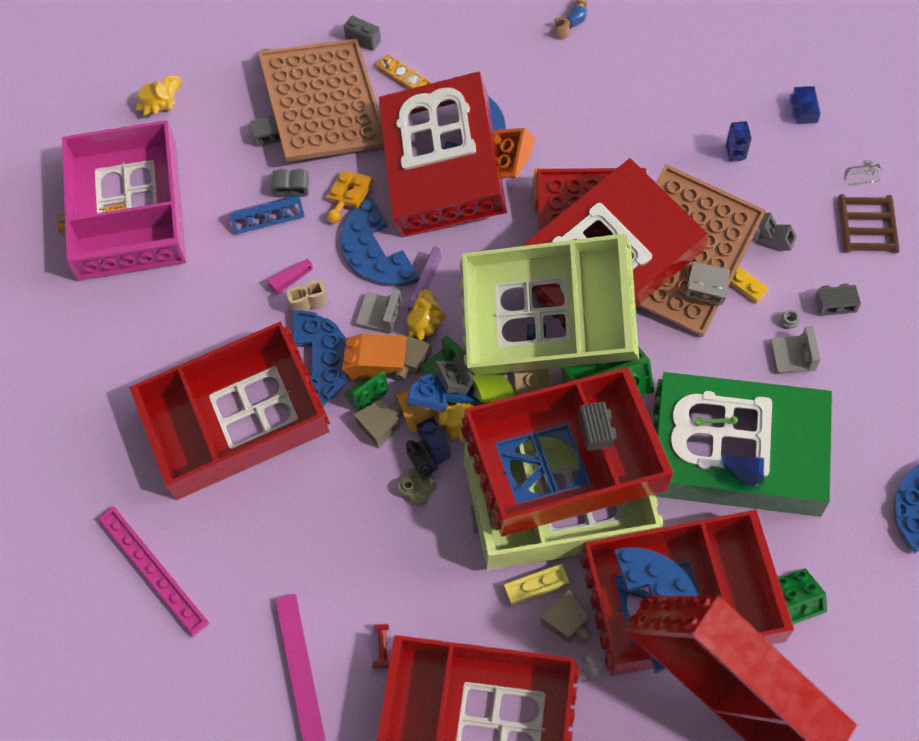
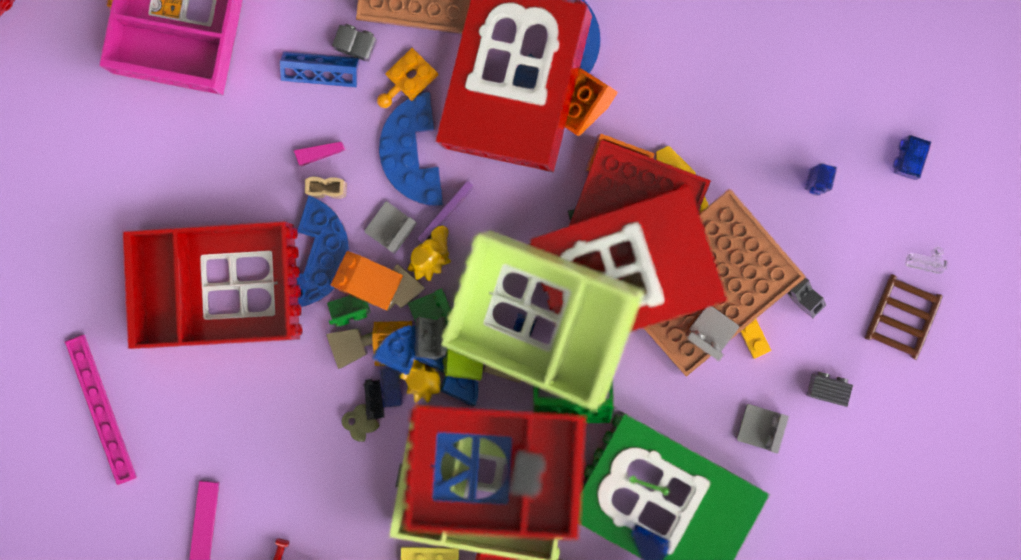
camera: 15 degrees right, 25 degrees up
(790, 314) = (781, 390): light grey plate -> none

